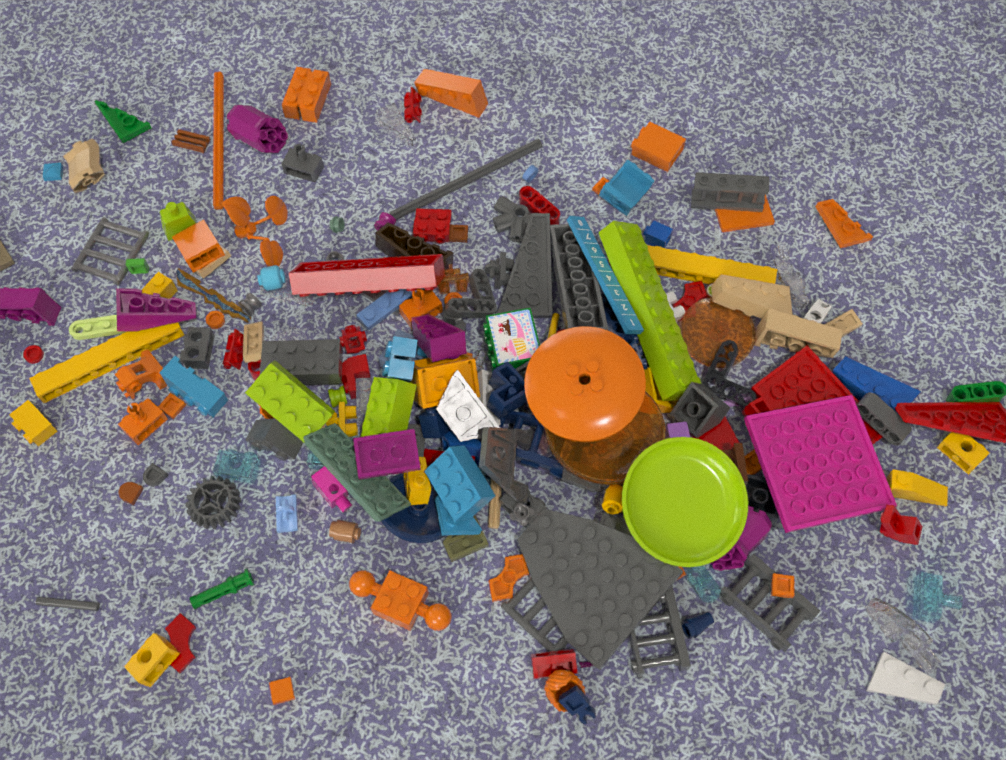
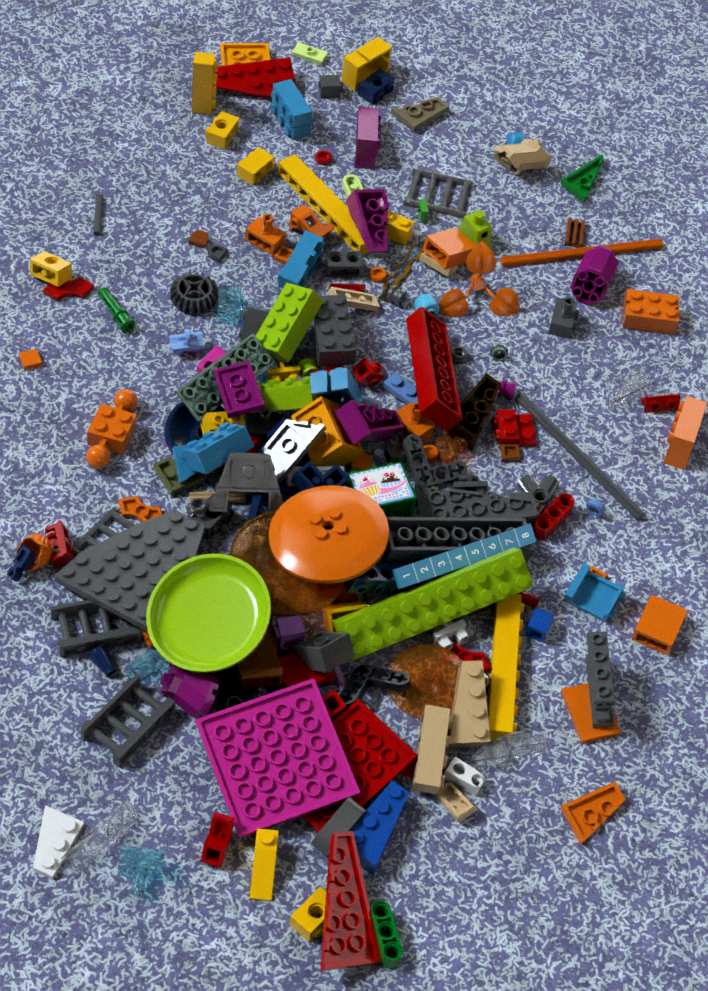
camera: 75 degrees right, 10 degrees down
(344, 531) = (173, 383): medium nougat brick -> none
(782, 585) = (141, 723): orange tile -> none

